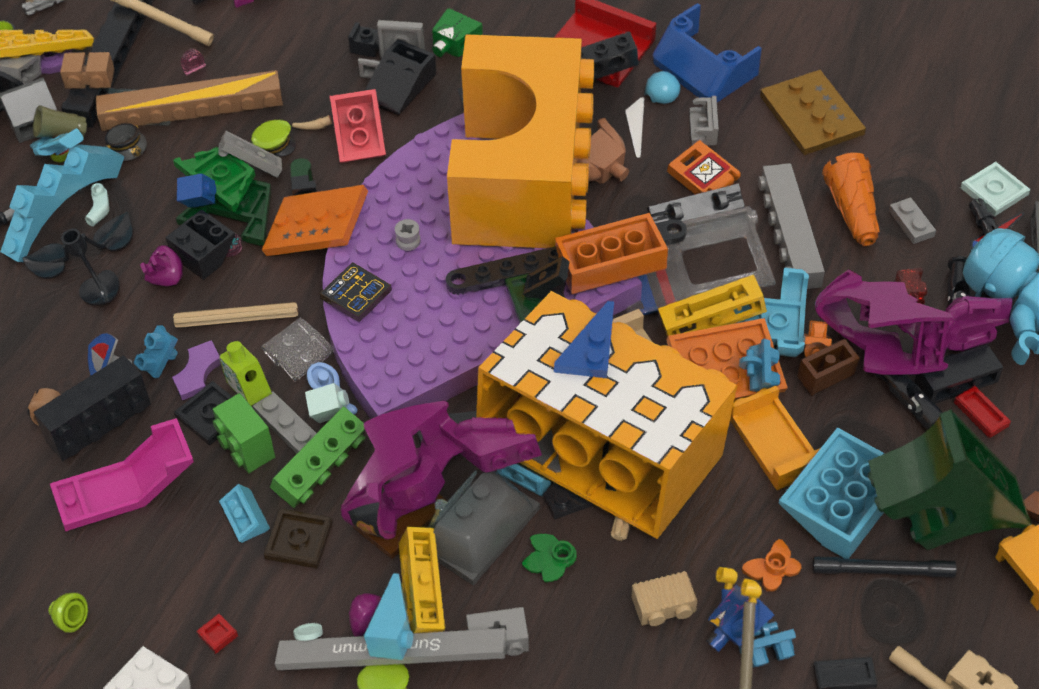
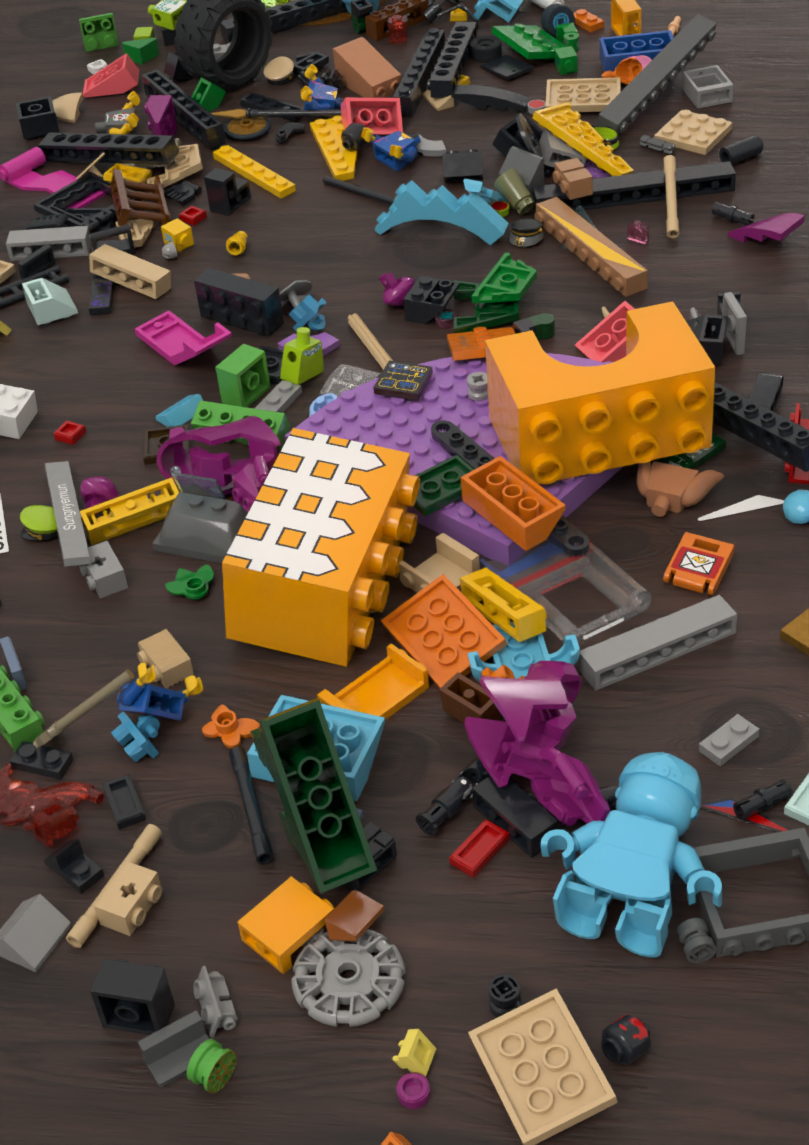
camera: 75 degrees right, 10 degrees down
(69, 612) = (63, 357): lime brick -> none
(100, 205) = (452, 245): light aqua arm -> none
(100, 289) = (386, 239): black plant -> none
(196, 190) = (474, 271): blue brick -> none
(249, 153) = (537, 287): light grey hinge -> none
(274, 137) = (575, 301): lime piece -> none
(308, 631) = (79, 472): light aqua piece -> none
(326, 402) = (294, 409): light aqua brick -> none
(390, 629) = (73, 496): medium azure slope -> none
(451, 32) = (776, 355): green torso -> none
(547, 279) = (452, 473): black slope -> none
(590, 349) = (342, 486): blue wing -> none
(698, 205) = (645, 569): hinge -> none
(704, 121) = (772, 550): light grey hinge -> none
(758, 366) = (431, 654): dark azure hips -> none
(853, 194) = (730, 671): orange cone -> none
(913, 283) = (617, 750): clear red brick -> none

